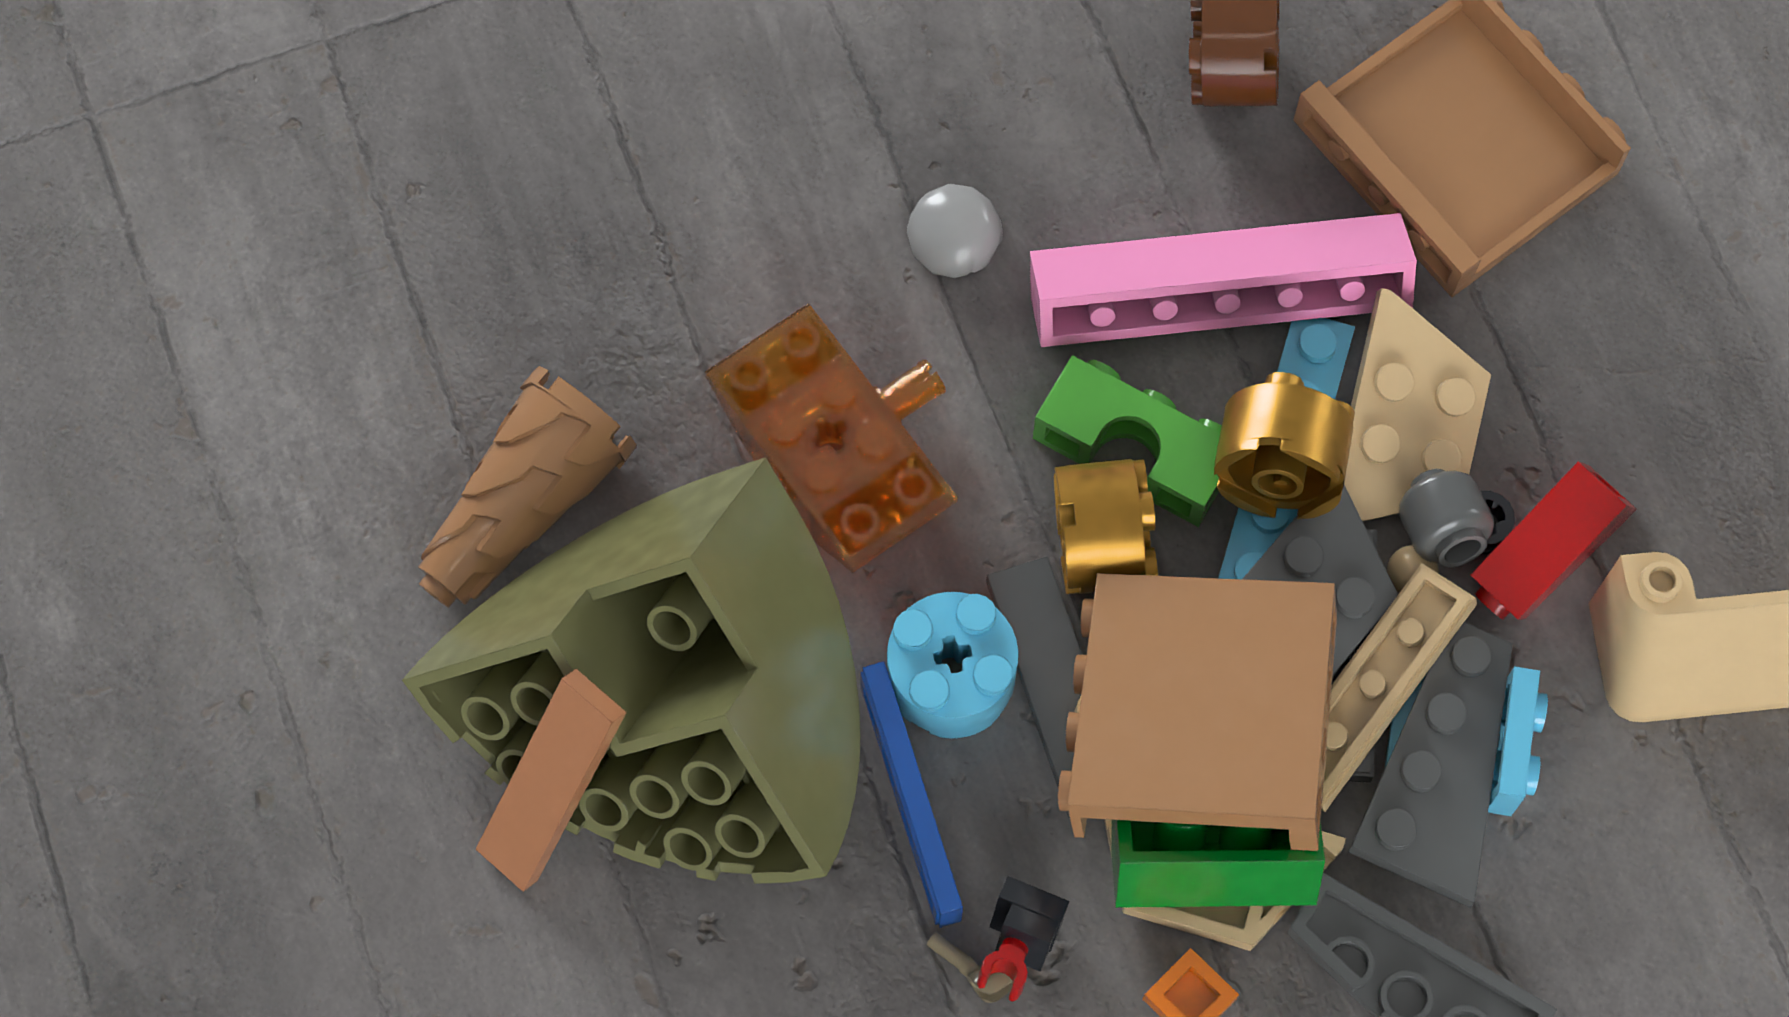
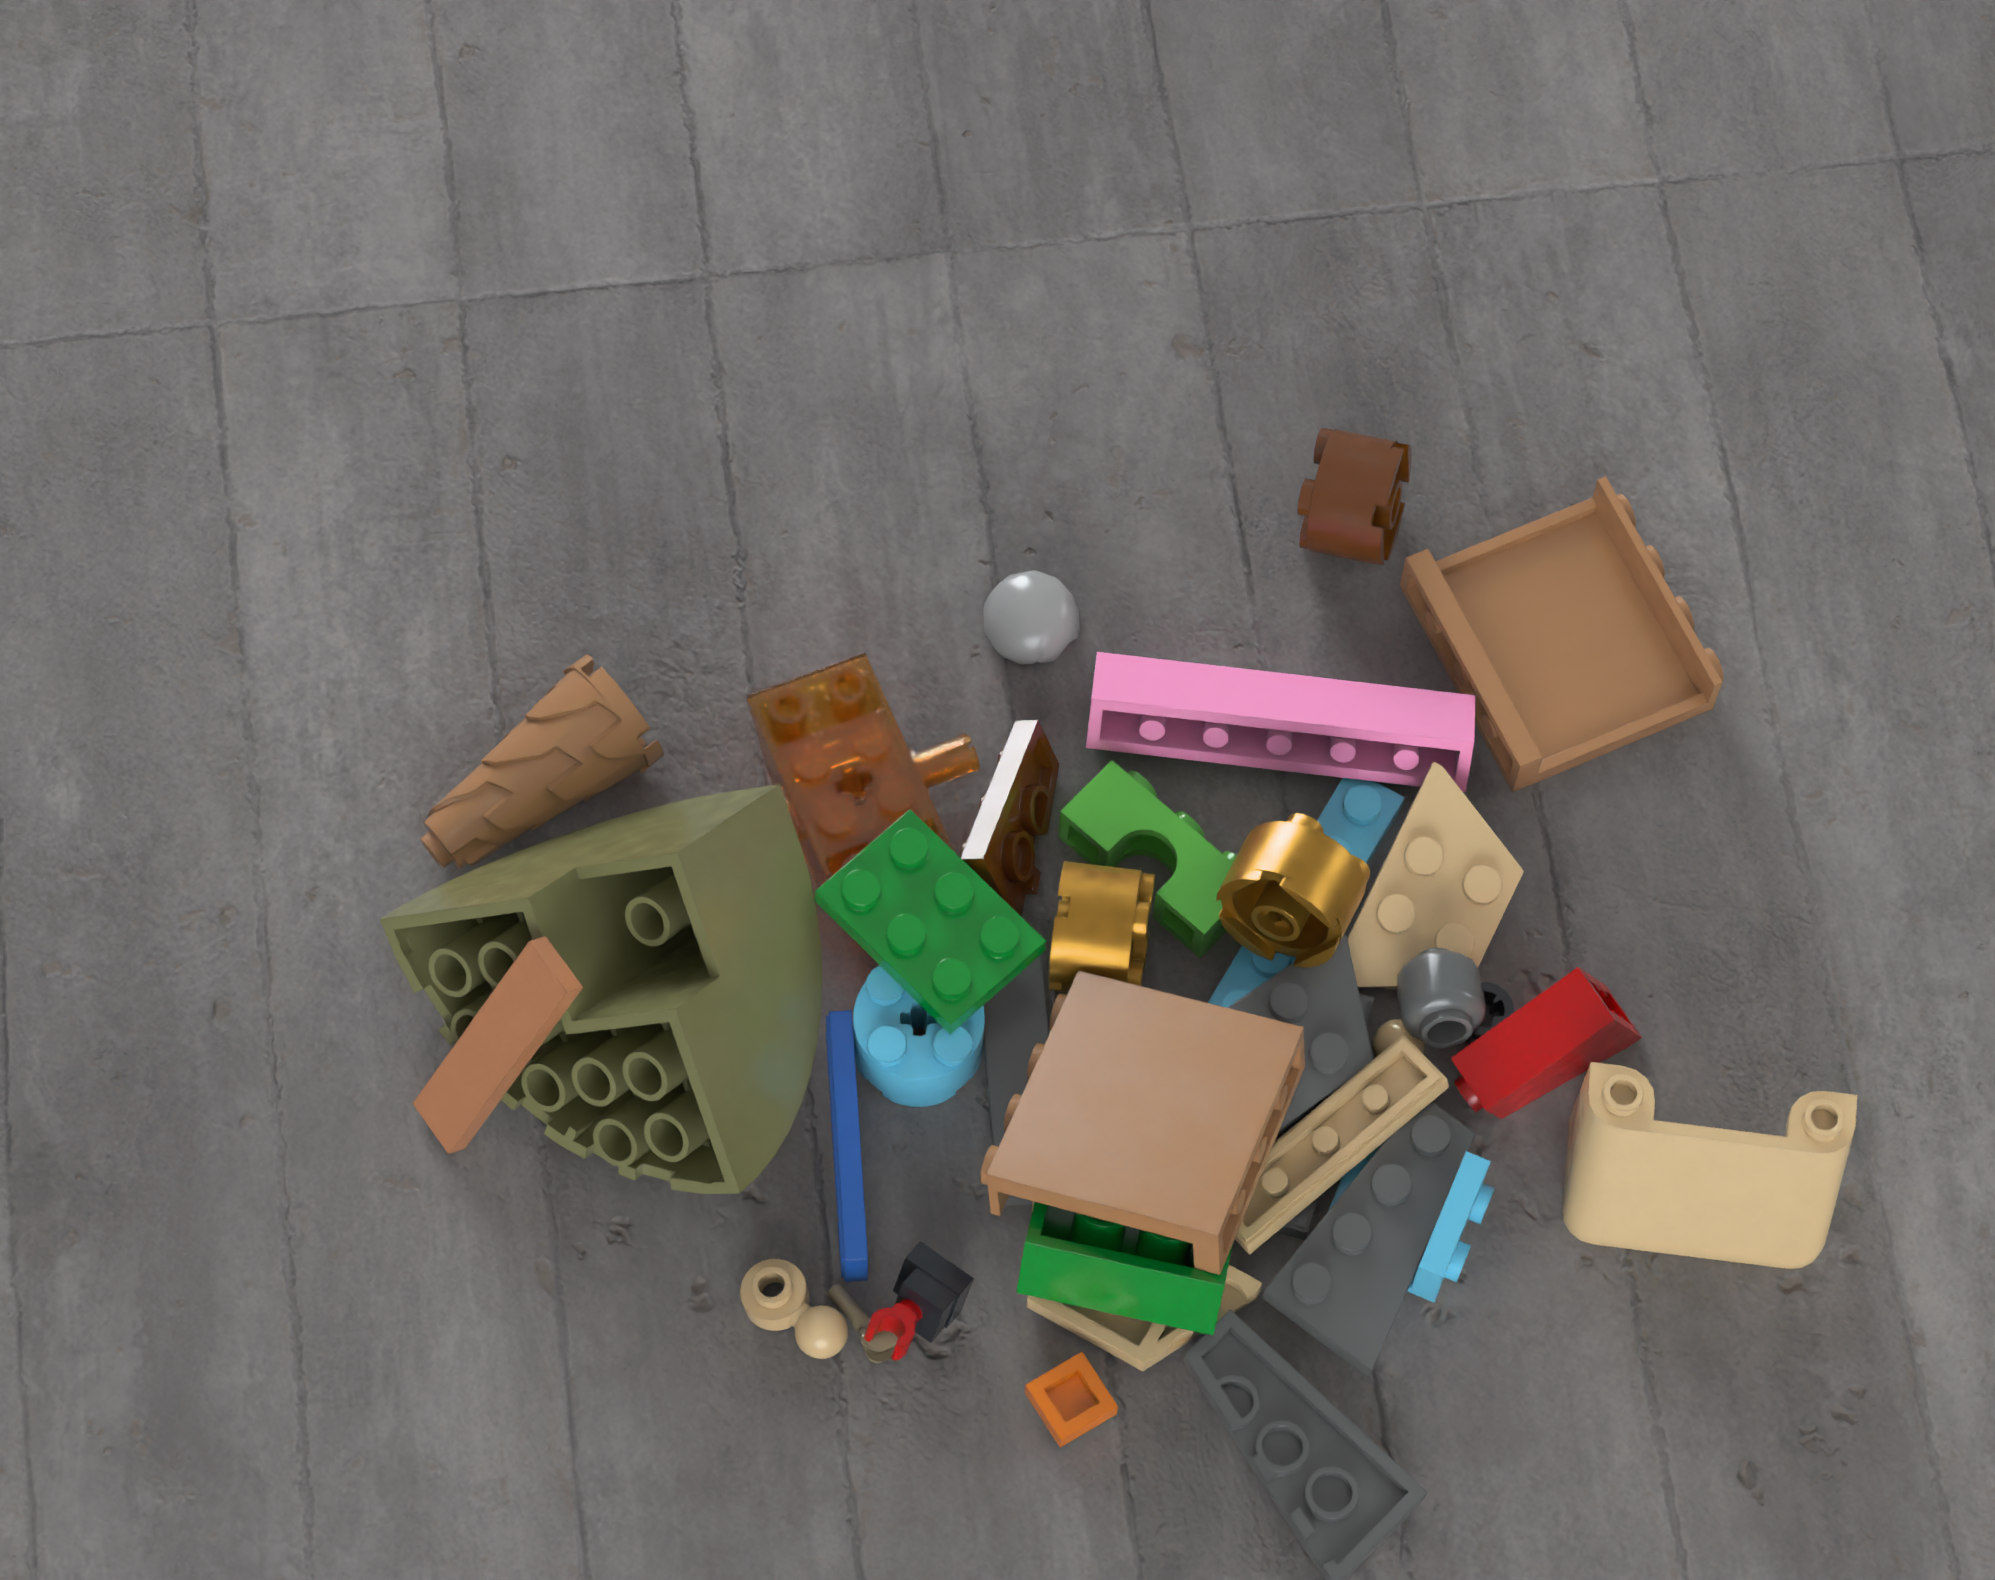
camera: 10 degrees right, 5 degrees down
(928, 985) = (818, 1329): none -> tan plate
(941, 557) = (930, 921): none -> green plate
(989, 425) = (1014, 814): none -> reddish brown wing

